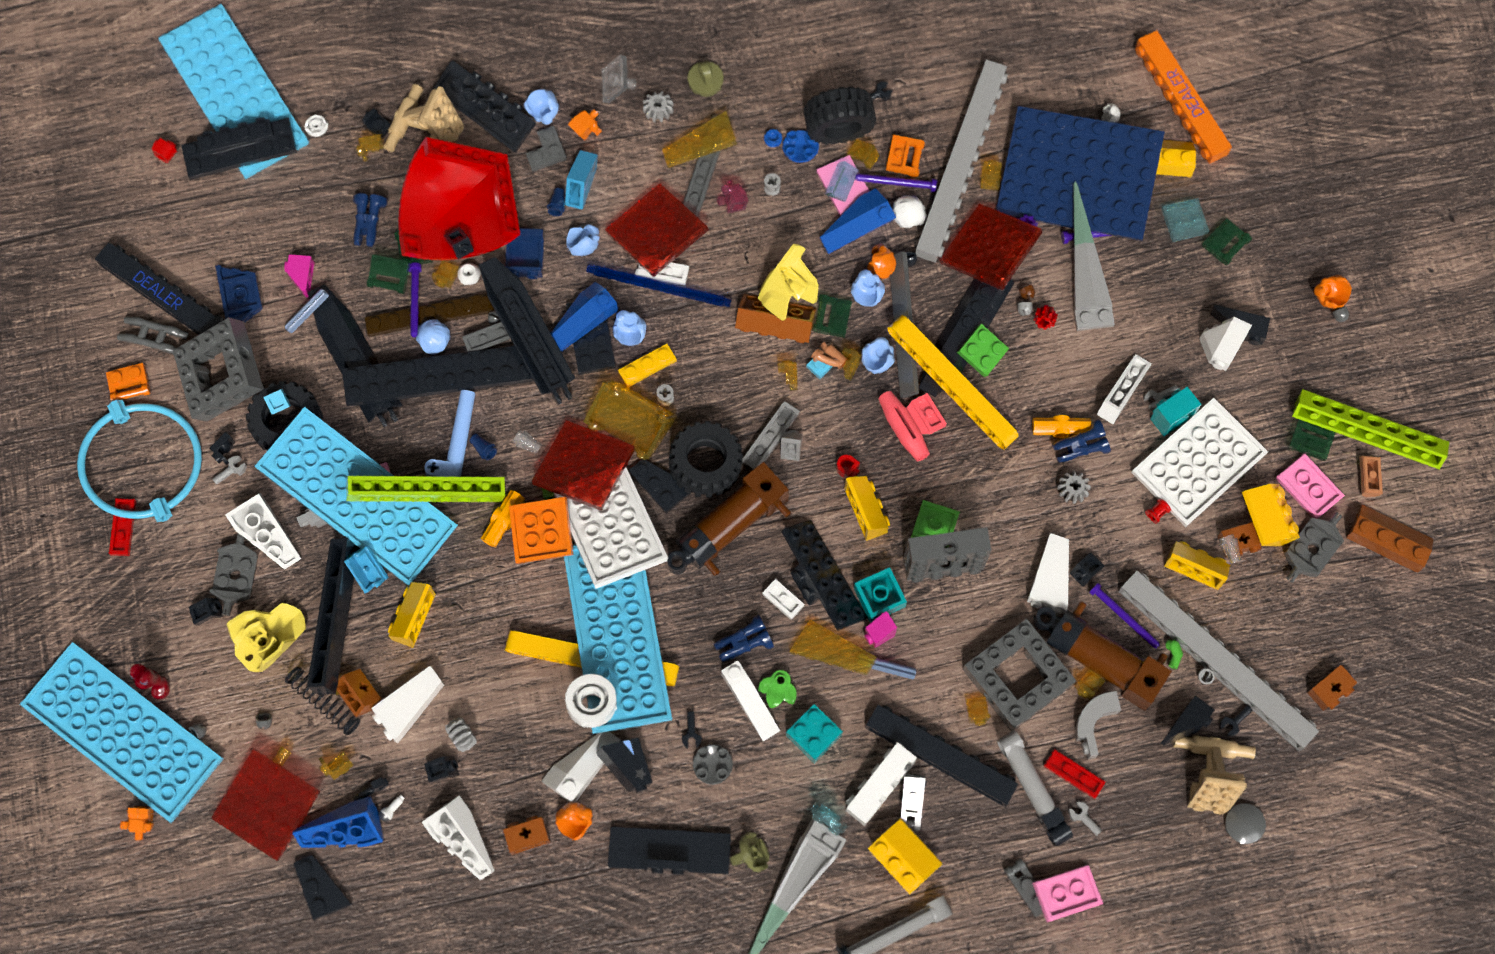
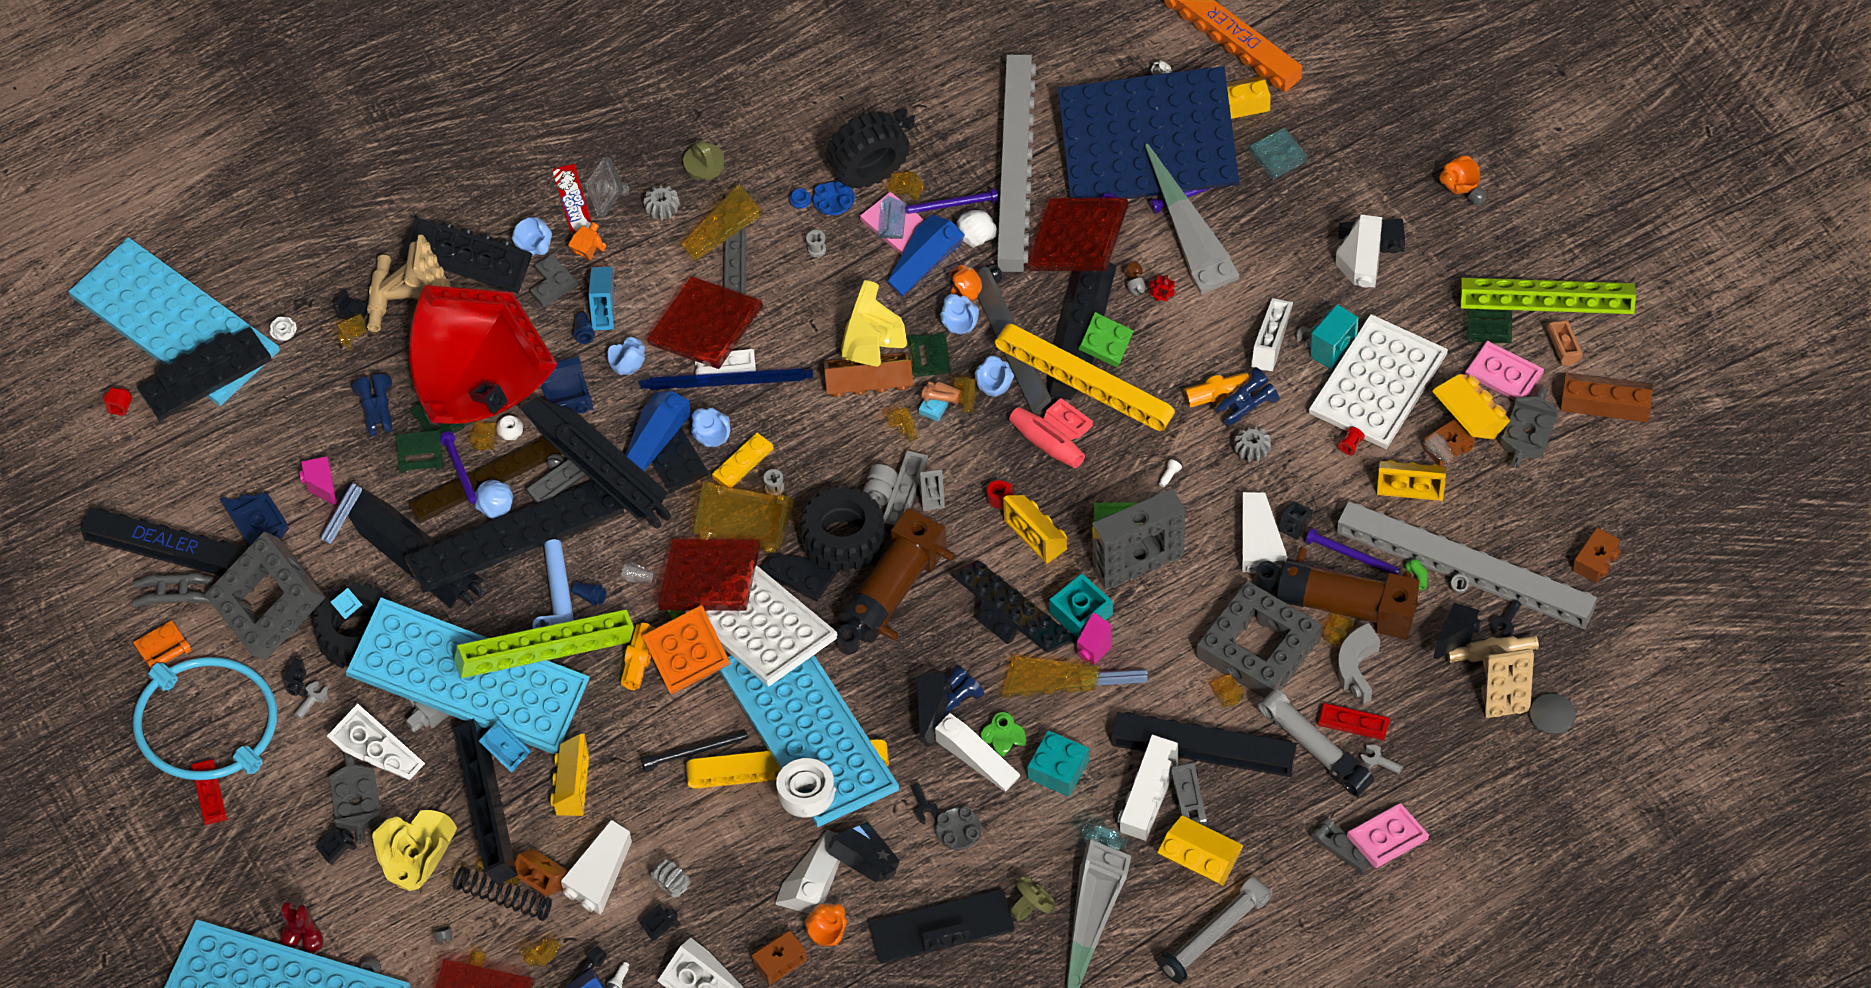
camera: 15 degrees left, 15 degrees down
(482, 619) = (650, 762): none -> black piece
(588, 78) = (572, 197): none -> sticker
(726, 646) = (932, 703): none -> black slope
(734, 197) = (780, 268): clear pink piece -> none
(752, 423) = (880, 483): none -> light grey wheel
(783, 599) = (977, 644): white plate -> none
(899, 153) = (945, 175): orange plate -> none
(990, 175) = (1052, 168): clear yellow bracket -> none
(1001, 485) = (1173, 466): none -> white piece
(1222, 237) = (1324, 159): clear green plate -> none

